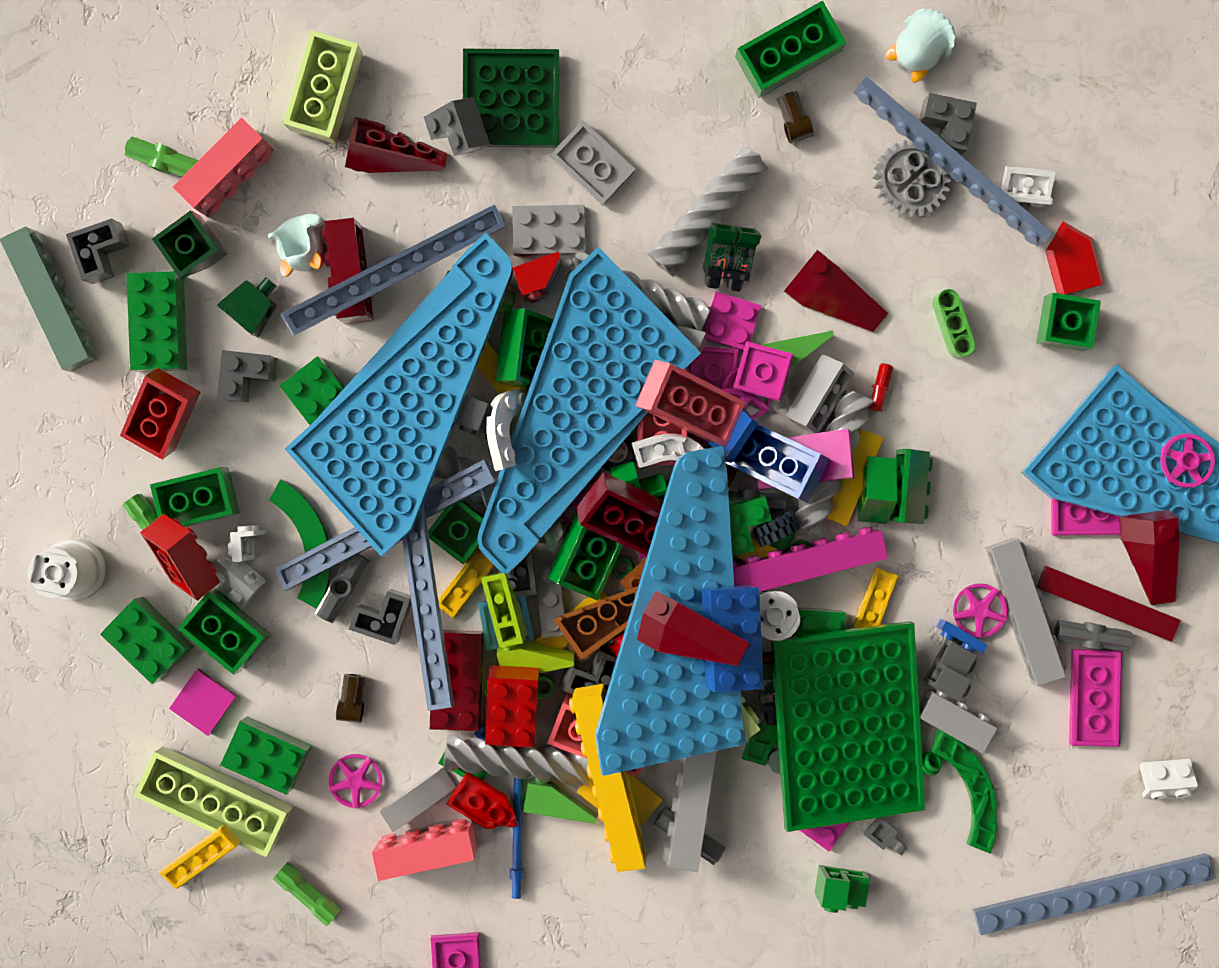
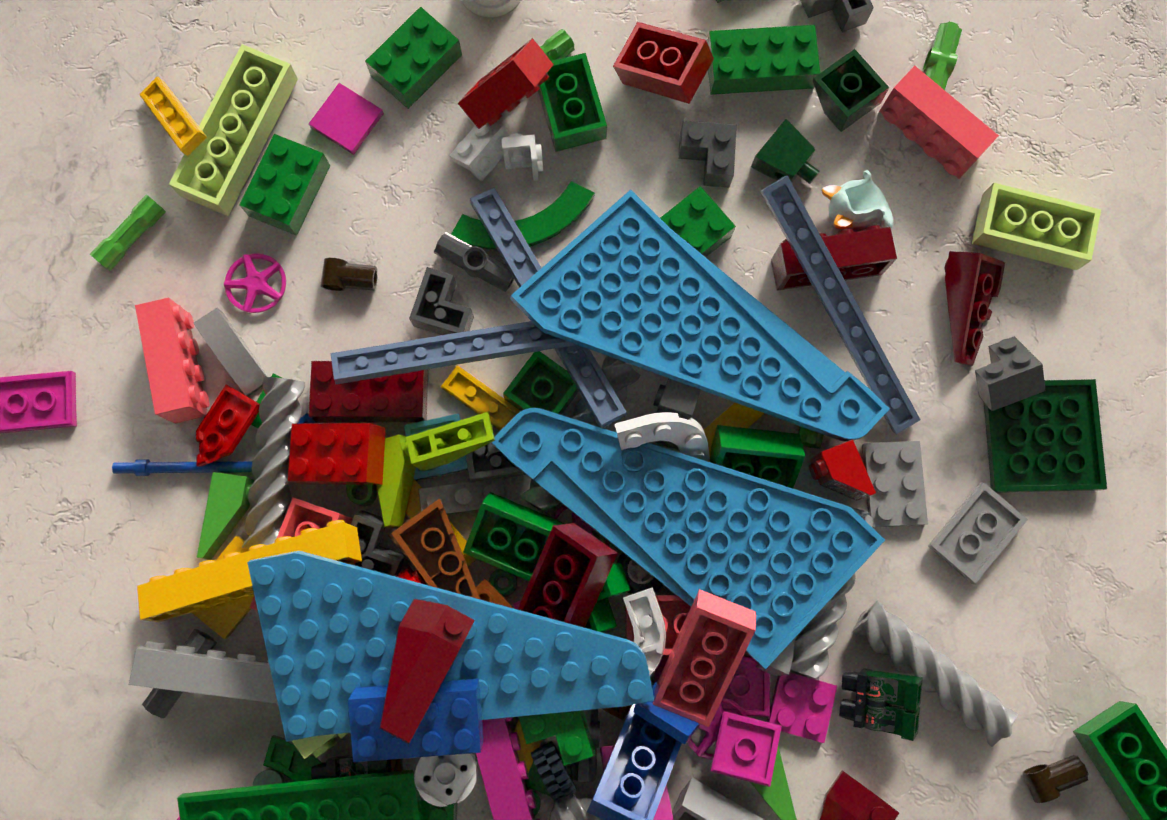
camera: 85 degrees right, 10 degrees down
(224, 631) = (424, 136): green brick -> none

